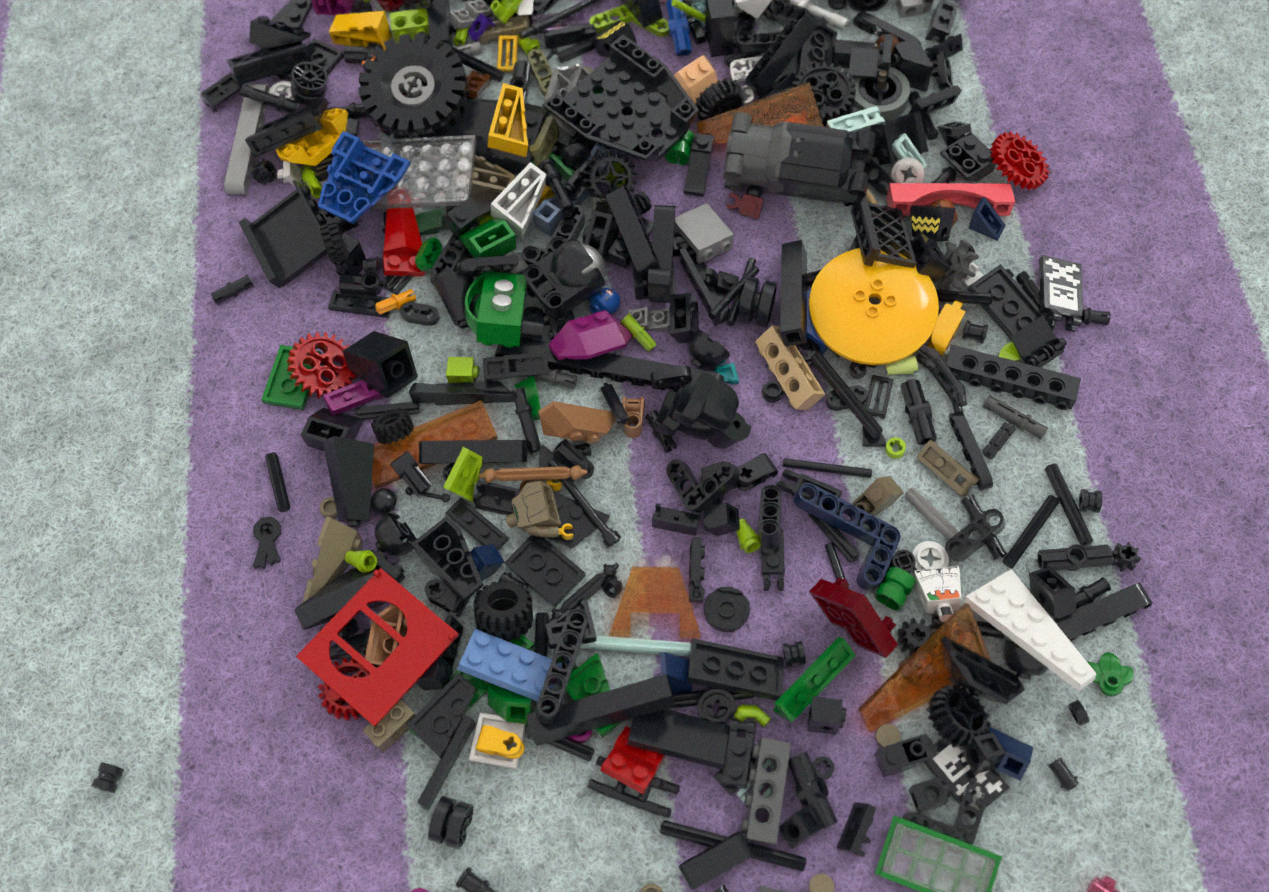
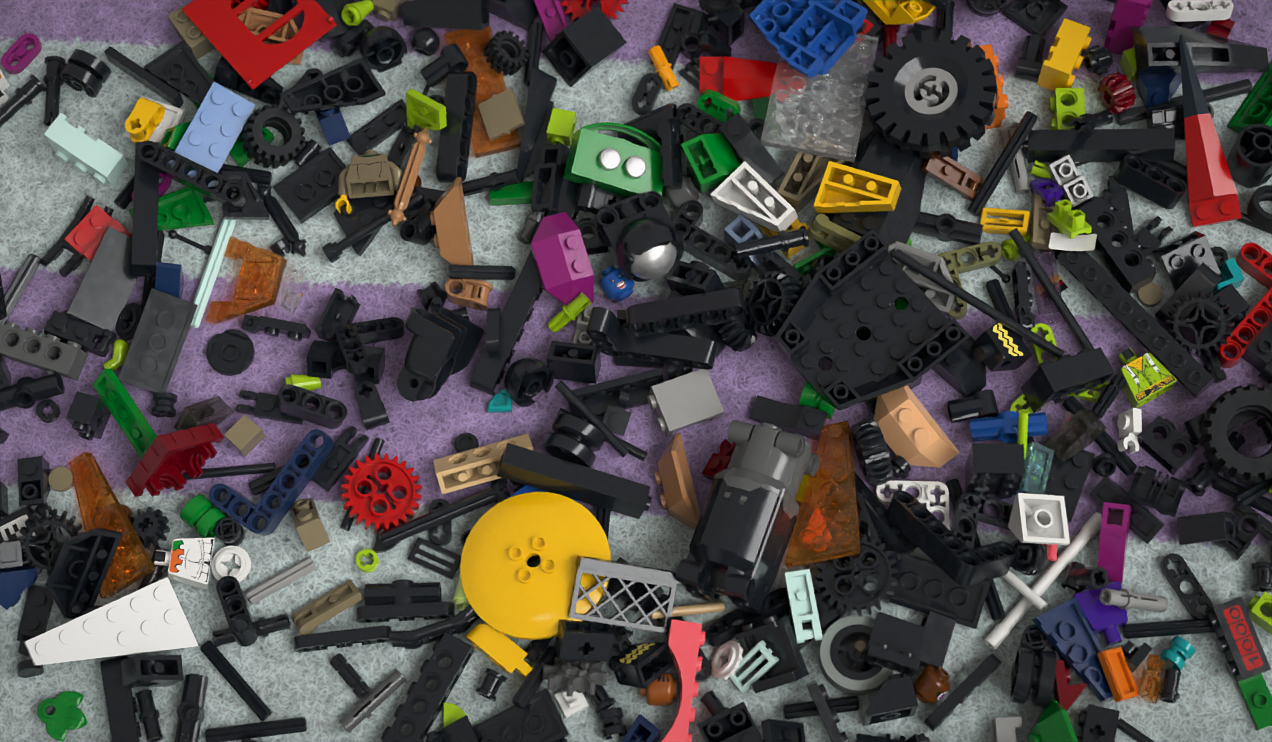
camera: 100 degrees right, 5 degrees up
(457, 416) = (501, 114): none -> dark tan piece
(458, 861) = (53, 82): none -> black pin
(541, 798) = (85, 152): none -> light aqua wedge
(586, 49) = (978, 304): none -> black piece
(625, 656) = (174, 235): none -> black hinge
(640, 444) = (432, 295): none -> black arm
(665, 52) = (979, 405): none -> black piece
(771, 228) = (677, 484): none -> medium nougat wedge
(801, 614) = (204, 412): none -> clear smoke slope
(807, 570) = (245, 435): none -> dark tan panel
(847, 443) = (362, 504): none -> red gear
(939, 418) = (405, 612): none -> black beam
(981, 241) = (612, 722): none -> black wheel
(1029, 724) = (34, 616): none -> black hinge

